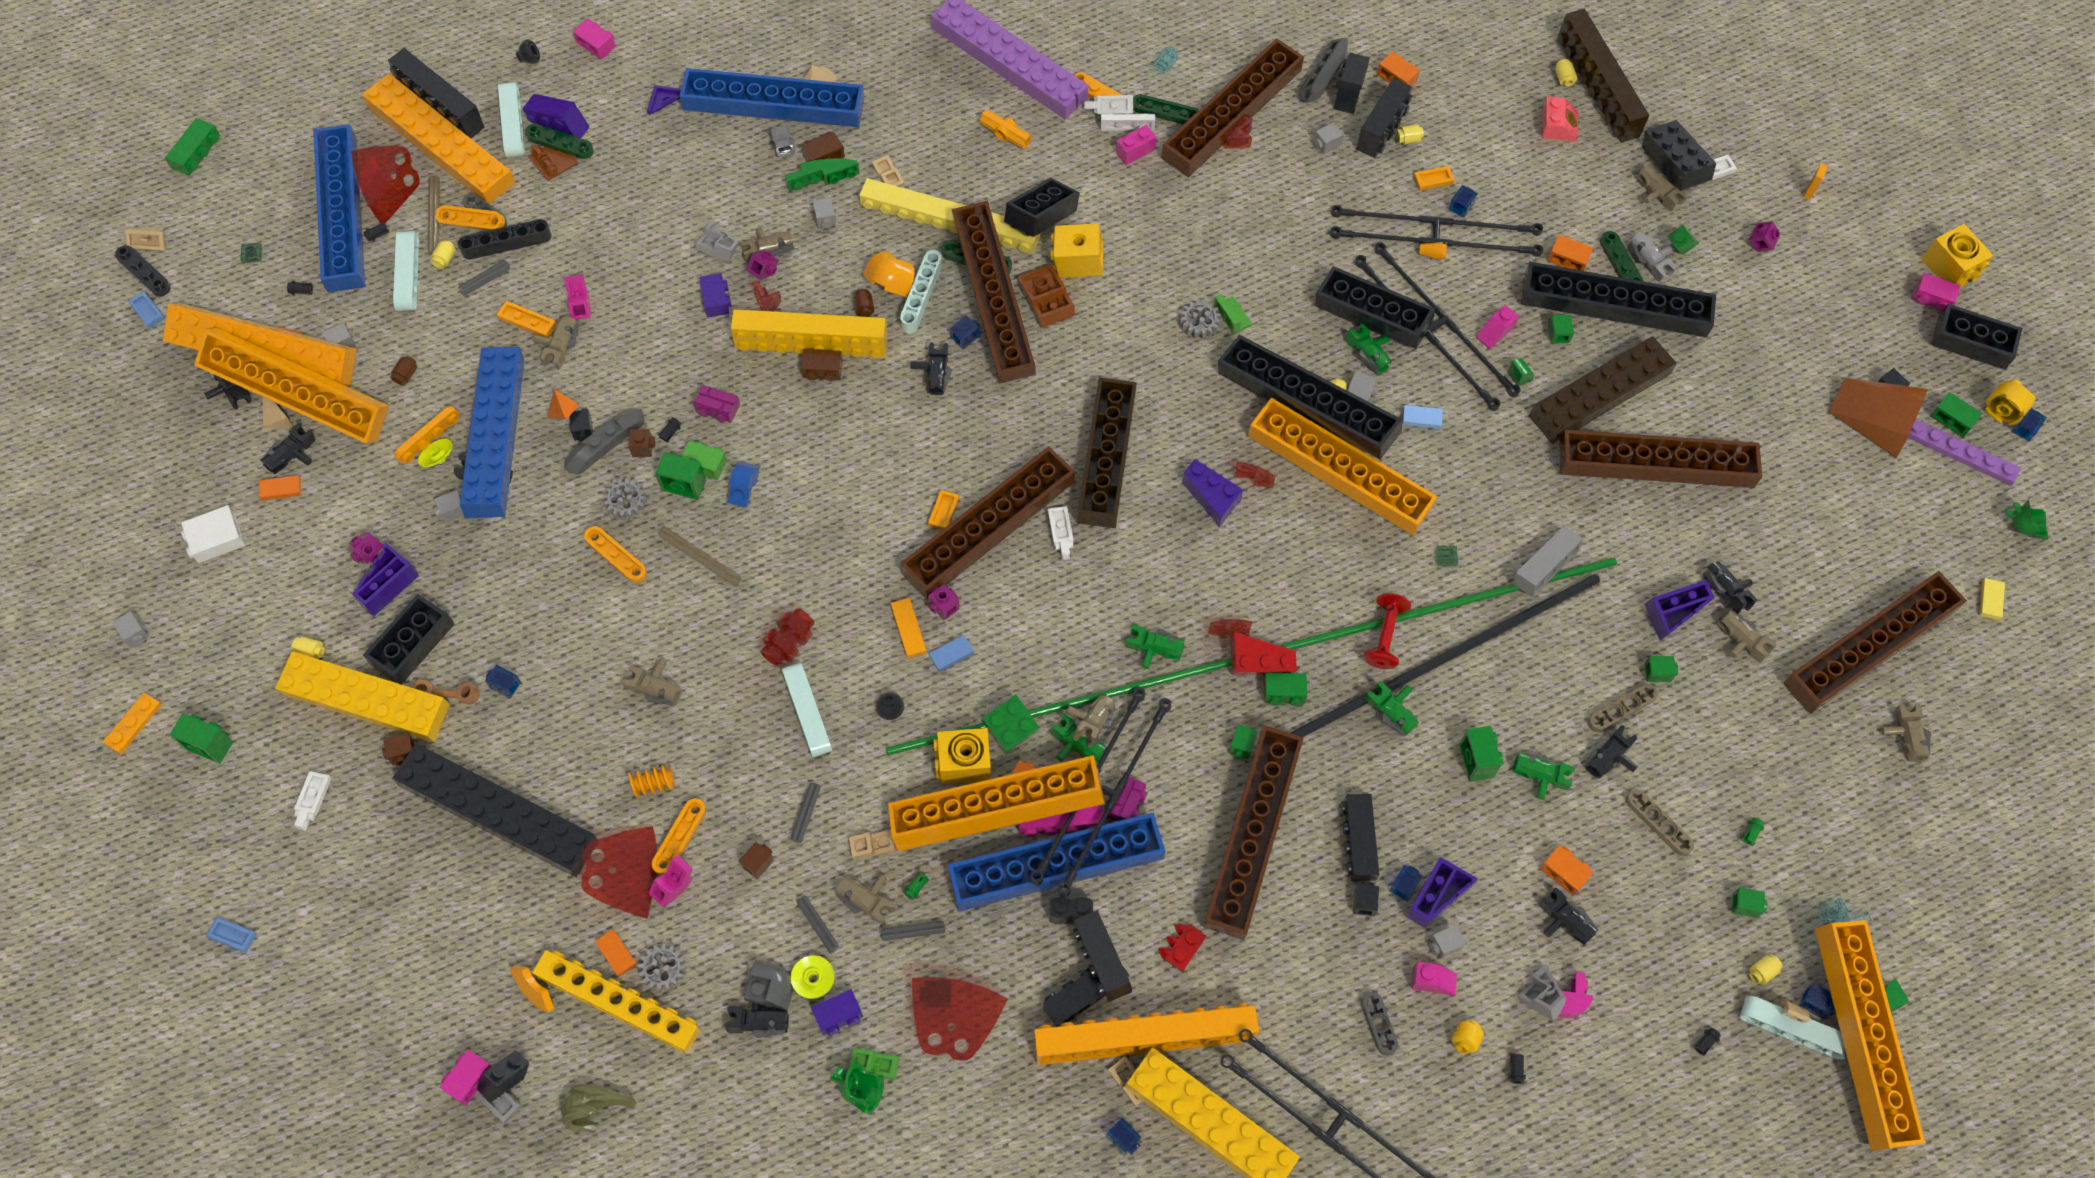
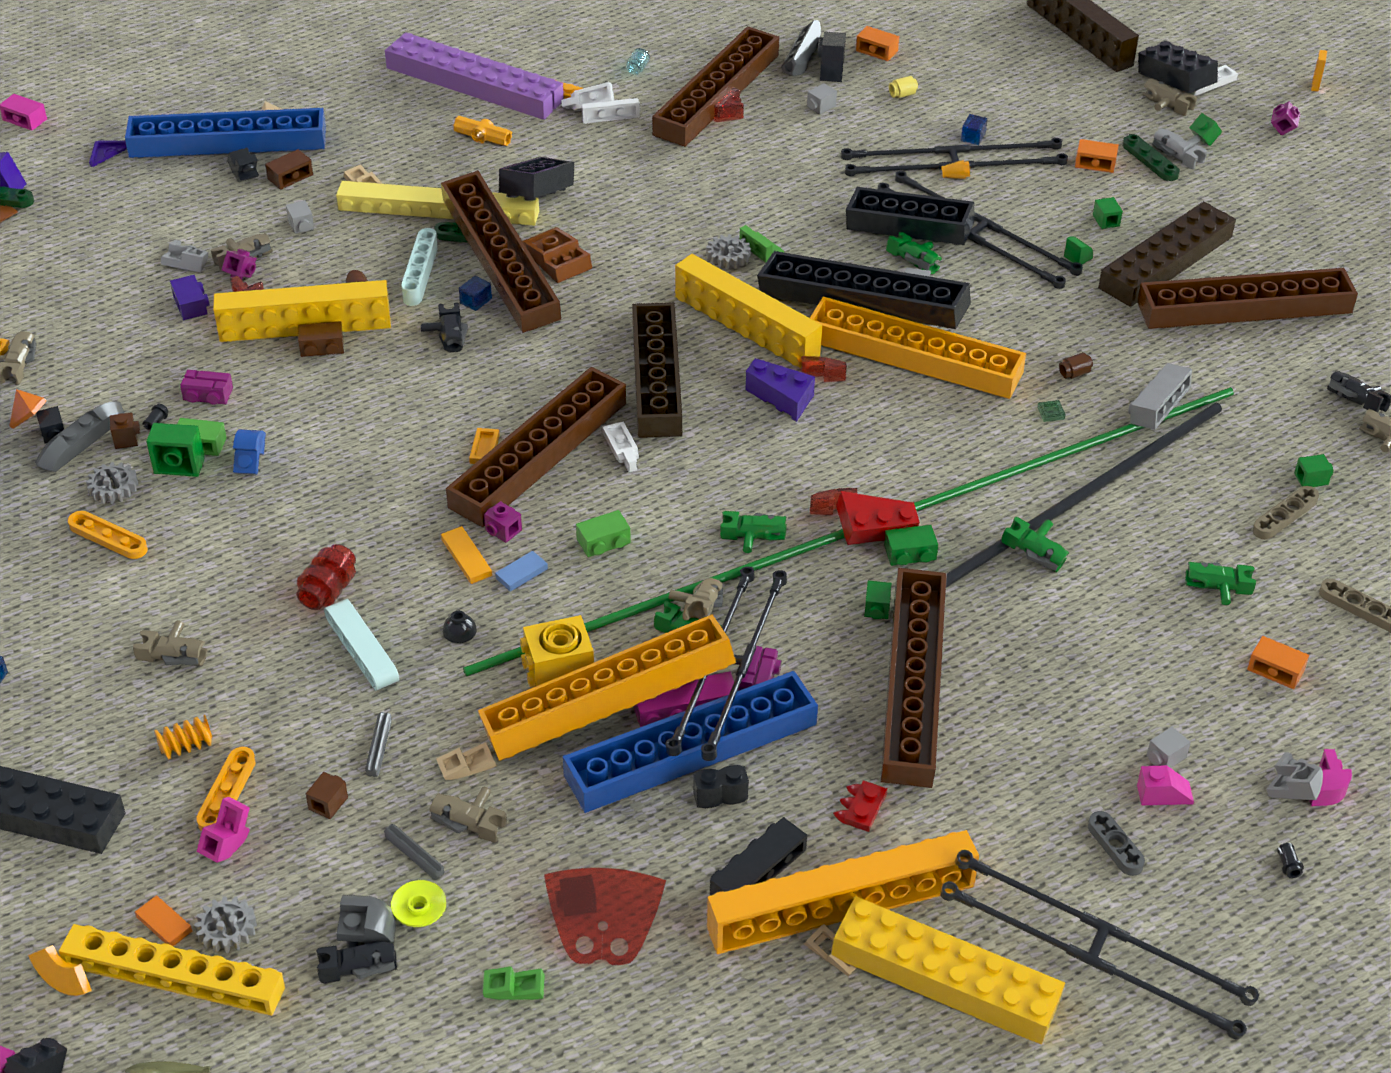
camera: 10 degrees left, 20 degrees down
(578, 297) = (32, 313): dark pink brick -> none
(632, 857) = (174, 836): clear red piece -> none
(700, 556) = (209, 524): dark tan axle -> none
(828, 170) = (293, 183): green slope -> none
(837, 1012) = (456, 935): dark purple brick -> none
(859, 1087) = (499, 1006): green helmet -> none
(890, 273) = (383, 252): light orange brick -> none
(913, 930) = (533, 839): dark grey axle -> none
(915, 886) = (524, 798): green pin -> none
(1010, 724) = (608, 617): green brick -> none
(1026, 628) = (603, 533): none -> bright green brick
(1077, 250) = (583, 208): yellow brick -> none
(1102, 955) = (771, 816): black brick -> none
(1124, 1137) = (844, 1006): clear blue brick -> none
(1136, 145) = (623, 125): dark pink brick -> none
(1163, 108) = (646, 97): dark green plate -> none
(1200, 399) = (747, 310): none -> yellow brick
(1360, 837) = (1037, 667): black brick -> none
(1366, 899) = (1062, 723): black brick -> none
(1384, 118) = (874, 74): black brick -> none
(1393, 604) = (1008, 500): red hose -> none
(1406, 882) = (1102, 701): clear blue brick -> none
(1422, 416) = (989, 301): light blue tile -> none
(1434, 178) = (938, 118): light orange tile -> none
(1440, 891) = (1145, 701): dark purple wedge -> none
(1467, 1037) = (1222, 836): yellow head -> none
(1481, 753) = (1146, 567): green brick -> none
(1482, 509) = (1076, 365): none -> reddish brown brick
(1497, 327) = (1042, 218): dark pink slope -> none
(1559, 119) = (1049, 59): coral slope -> none
(1565, 72) = (1044, 25): light yellow brick -> none
(1567, 916) = (1295, 705): black piece -> none
(1607, 754) = (1283, 555): black piece -> none
(1618, 299) = (1158, 181): black brick -> none
(1676, 607) = (1311, 414): dark purple wedge -> none

